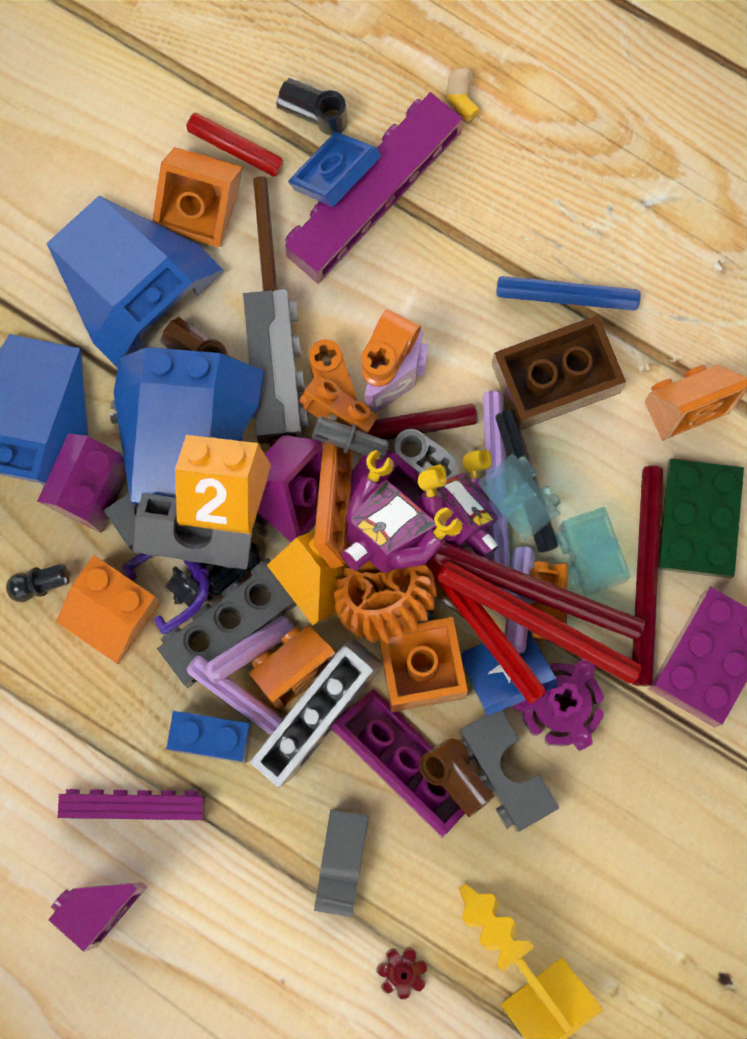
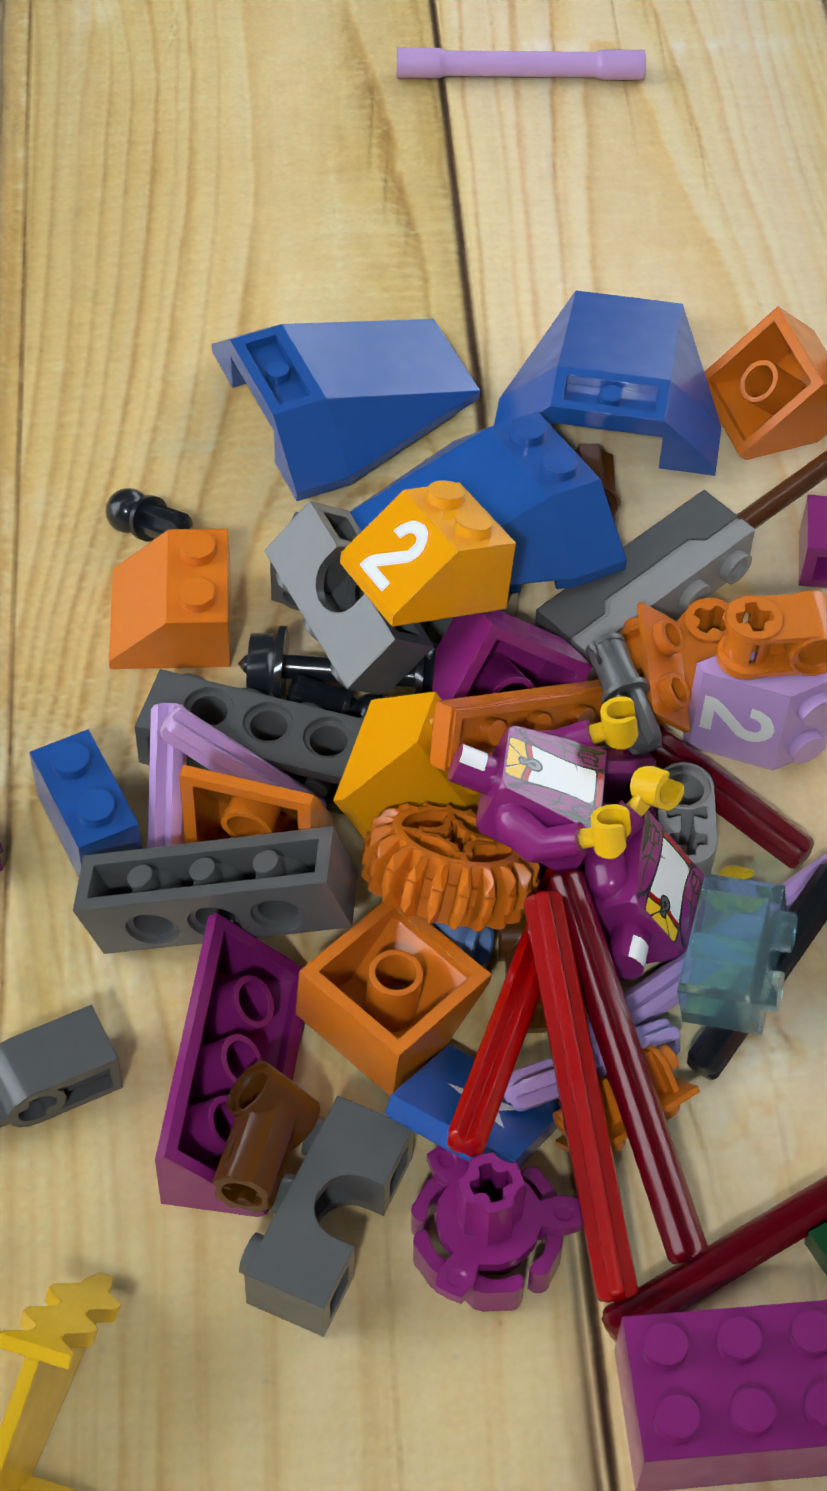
camera: 50 degrees right, 25 degrees down
(84, 481) = (314, 461): magenta slope -> none
(200, 574) = (297, 650): dark purple piece -> none
(593, 552) = (747, 1122): clear light blue brick -> none

